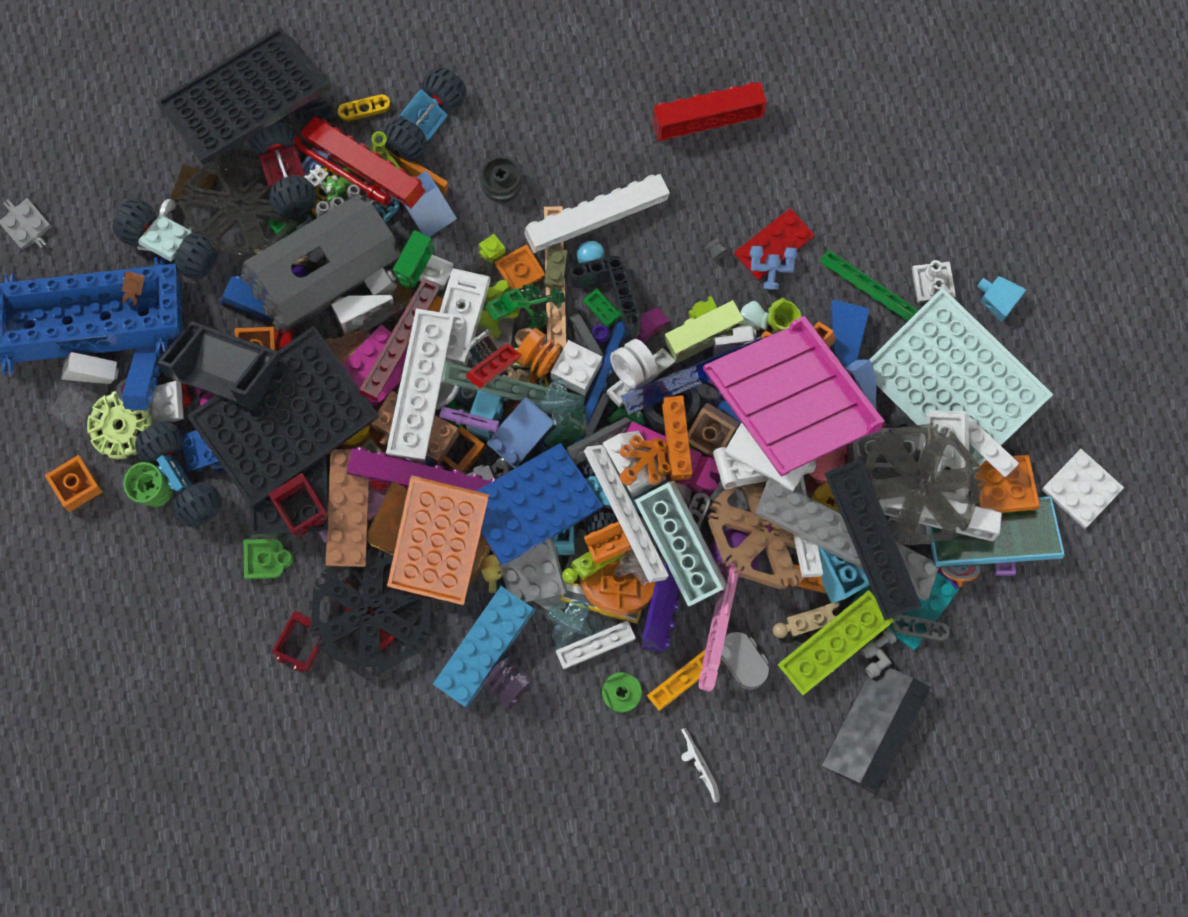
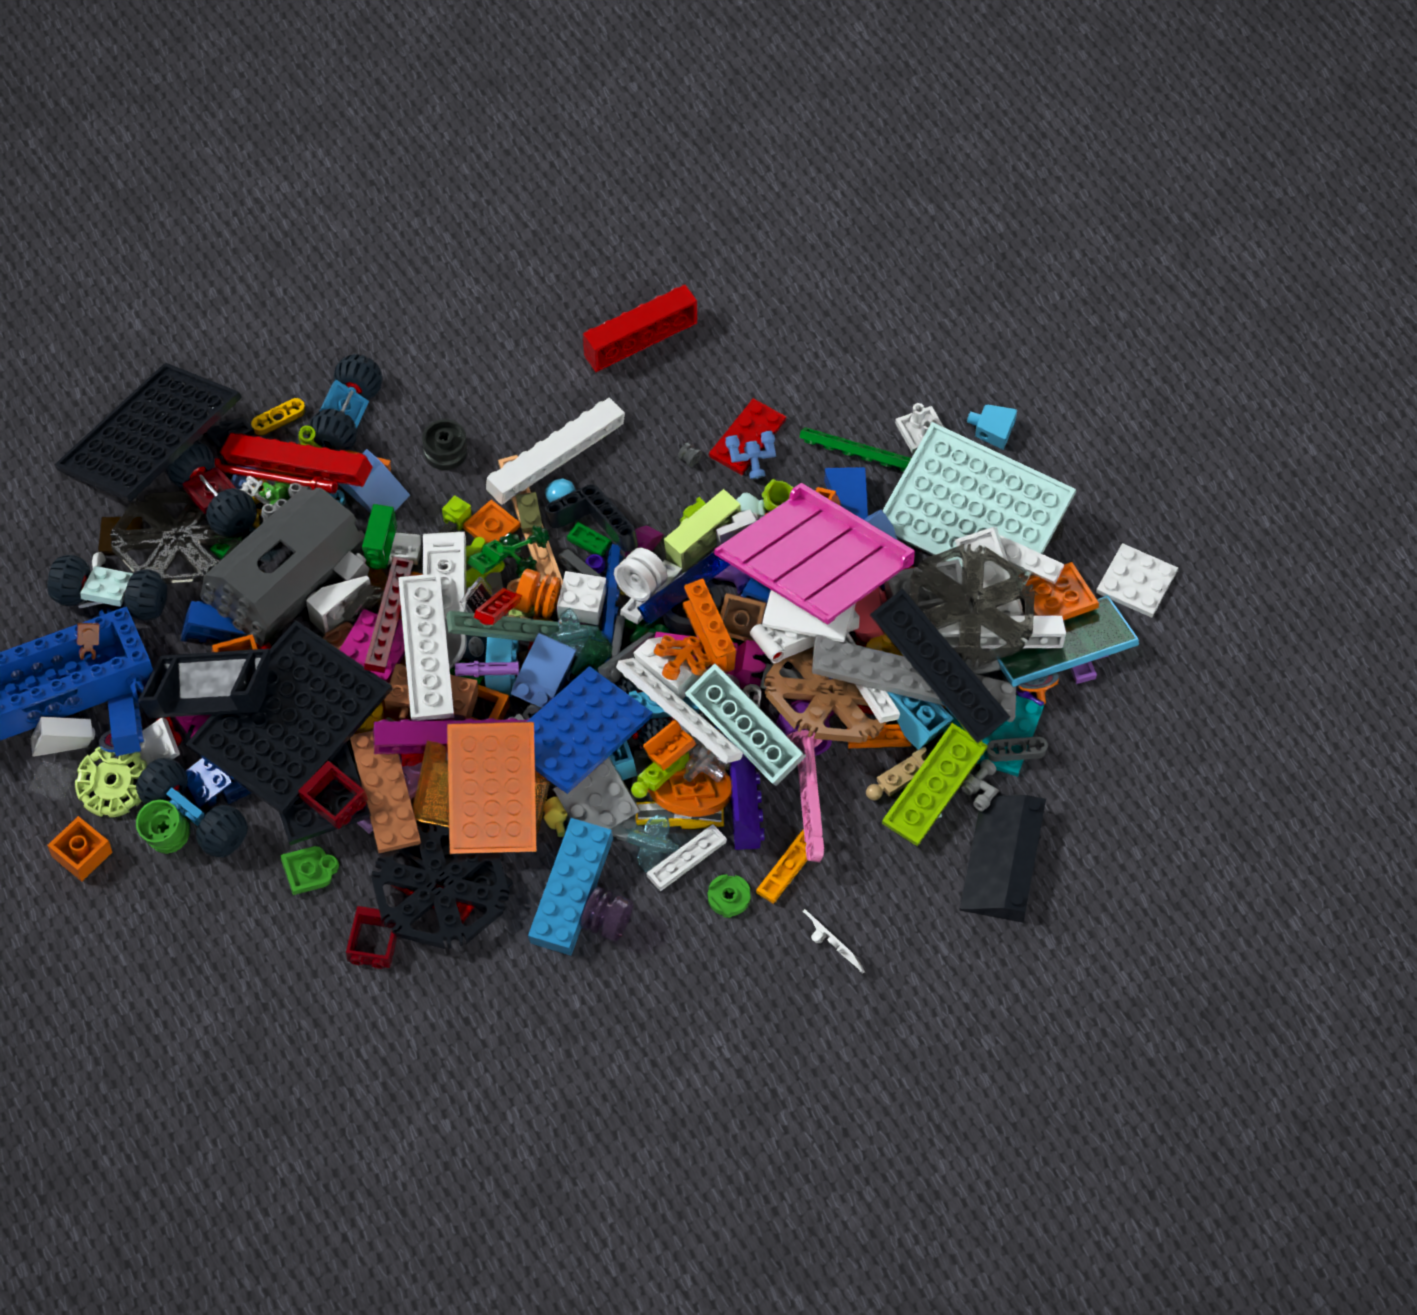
camera: 15 degrees left, 15 degrees down
(744, 661) = (847, 830): light grey brick -> none

